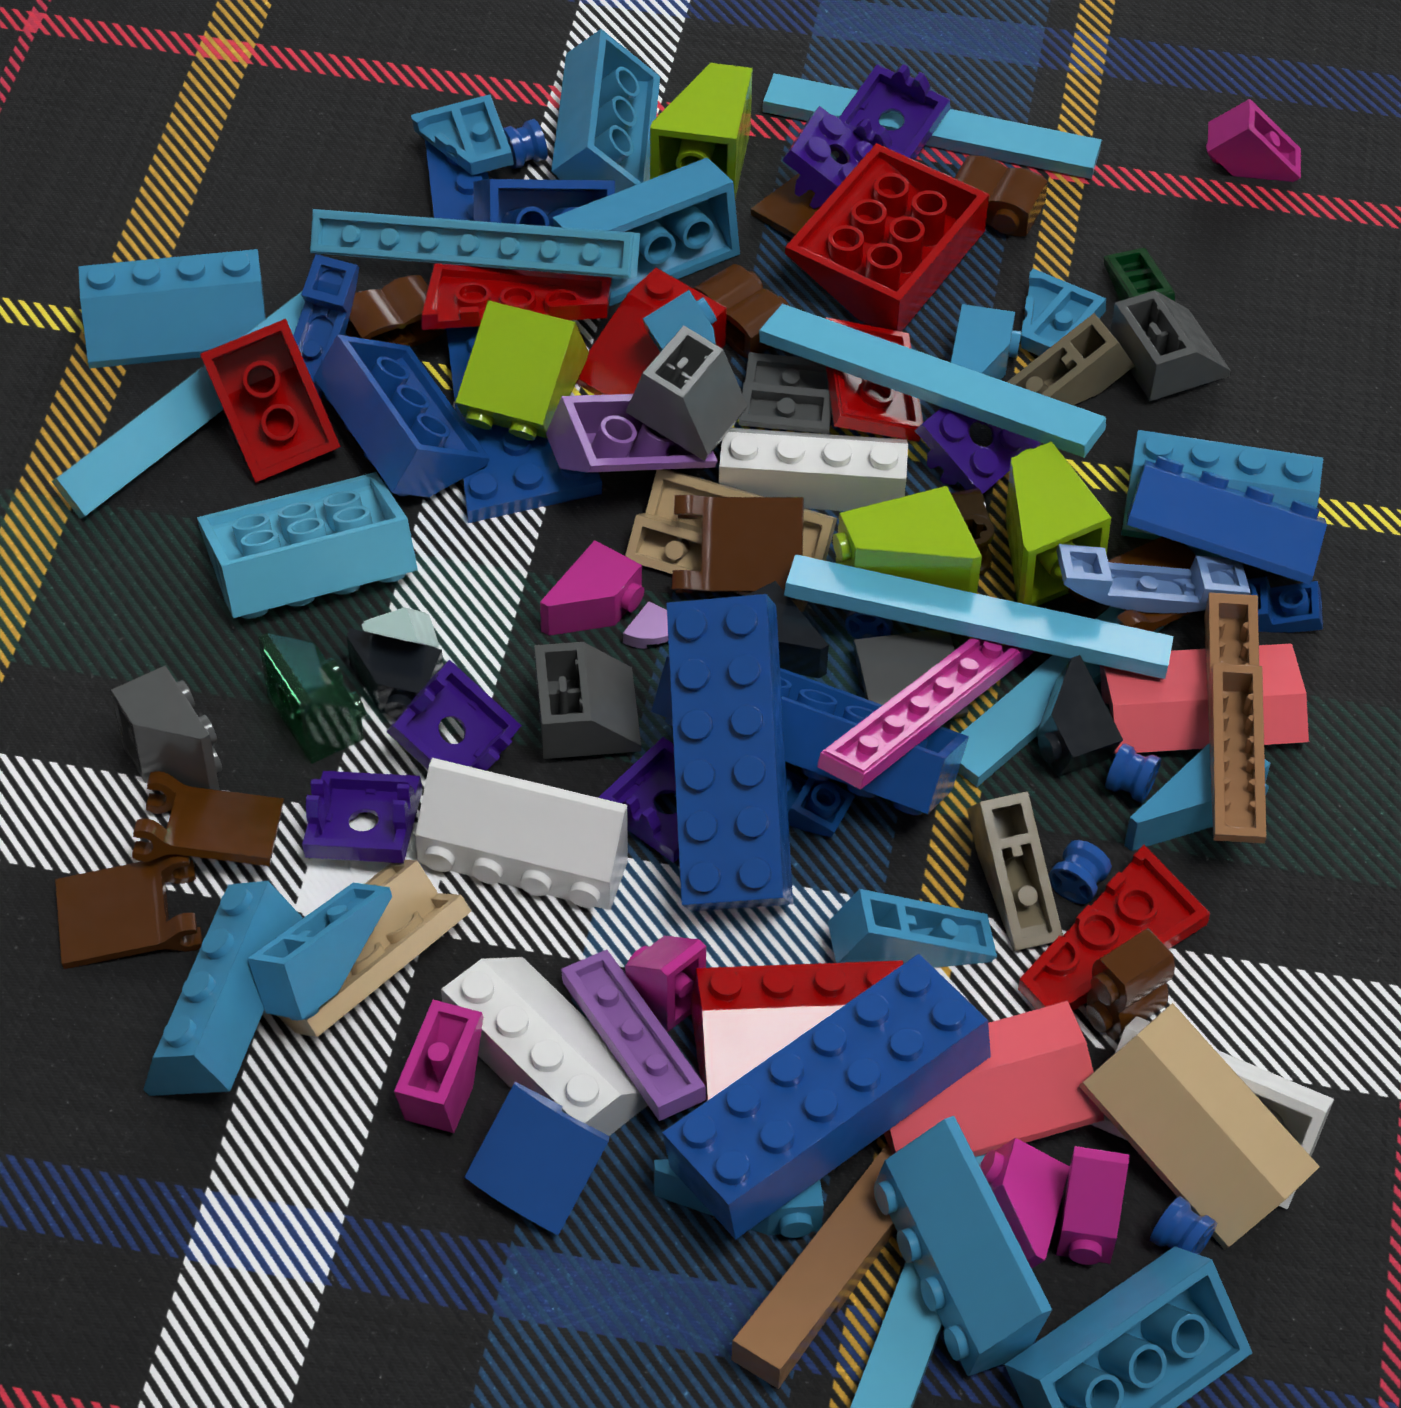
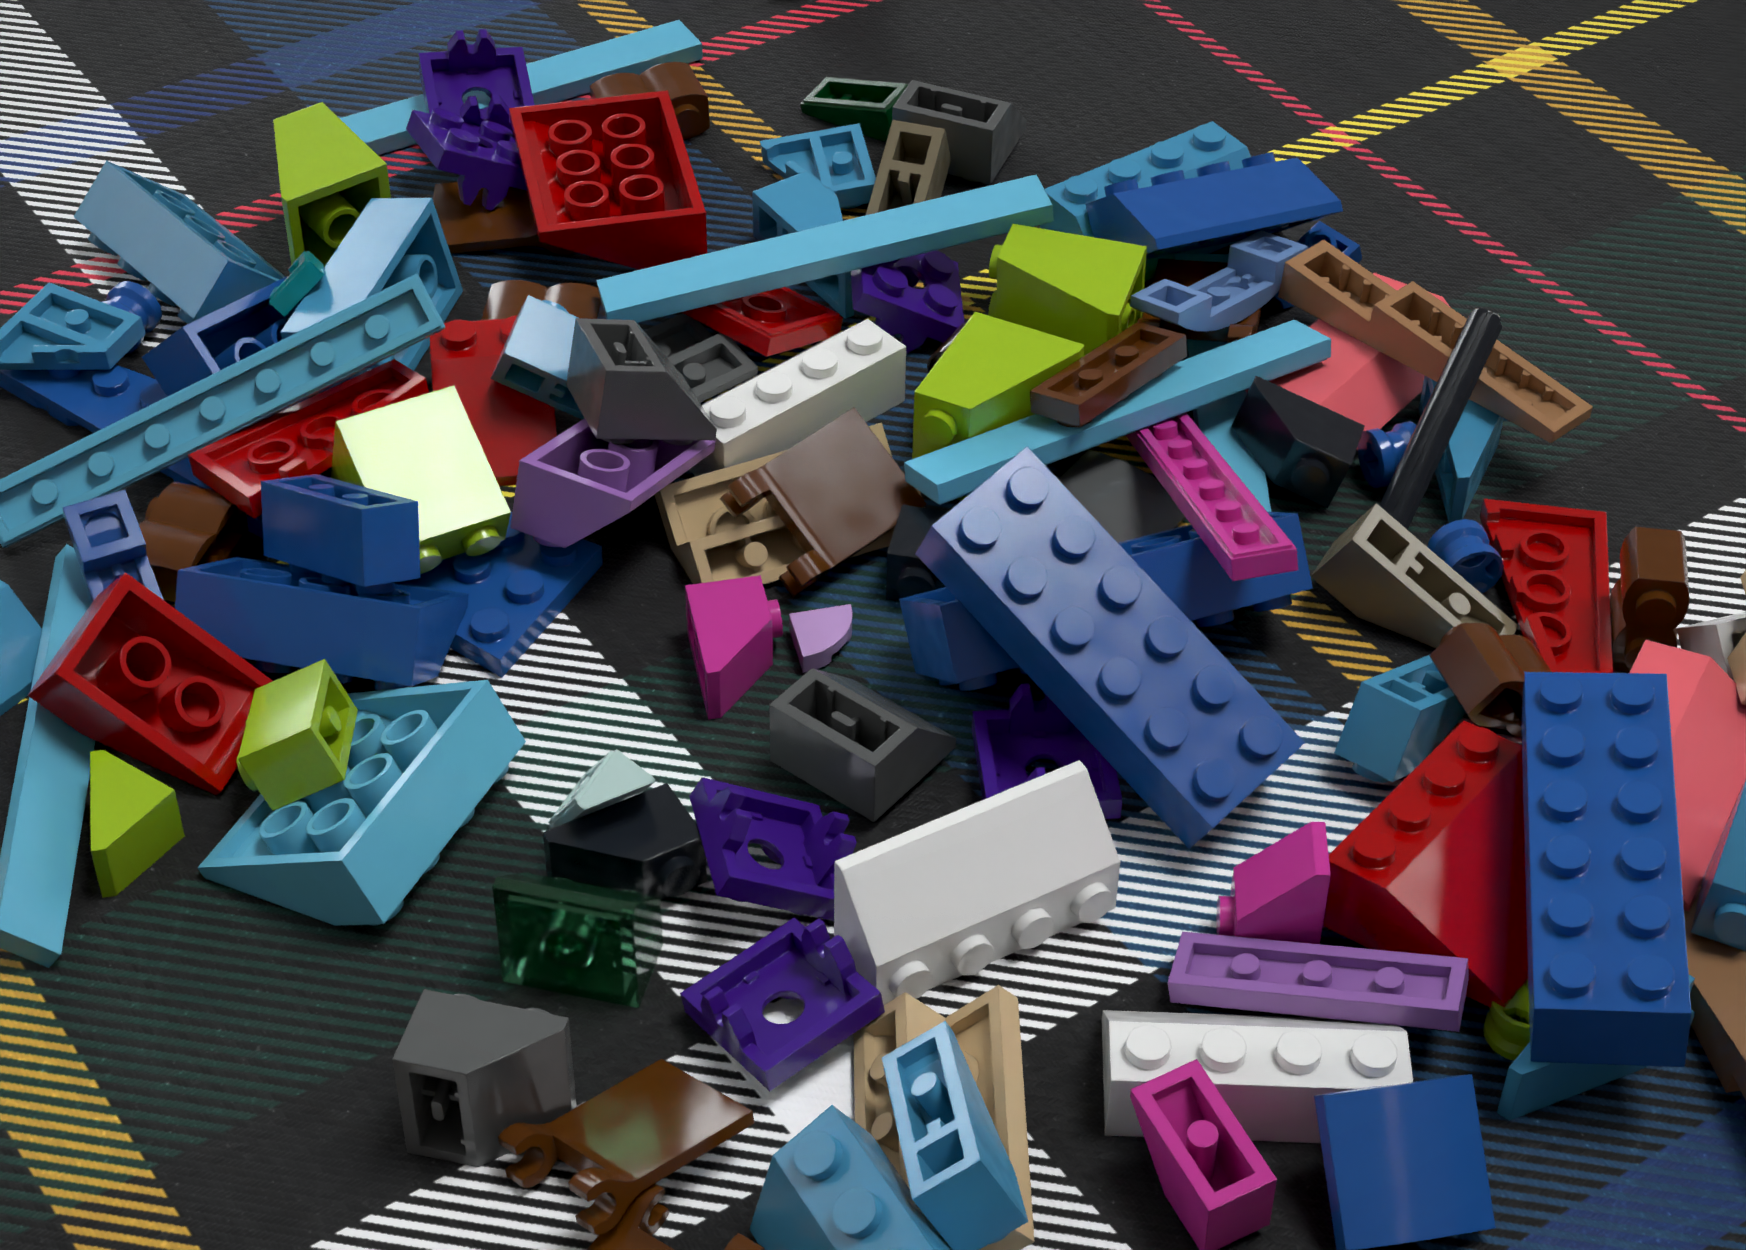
camera: 45 degrees left, 10 degrees down
(180, 466) = (130, 821): none -> lime slope
(304, 478) = (297, 735): none -> lime brick
(439, 371) = (341, 531): none -> blue brick
(600, 188) = (303, 277): none -> teal tile
(973, 956) = (1487, 672): none -> reddish brown brick
(980, 586) = (1108, 374): none -> reddish brown plate
(1145, 776) = (1441, 415): none -> black axle

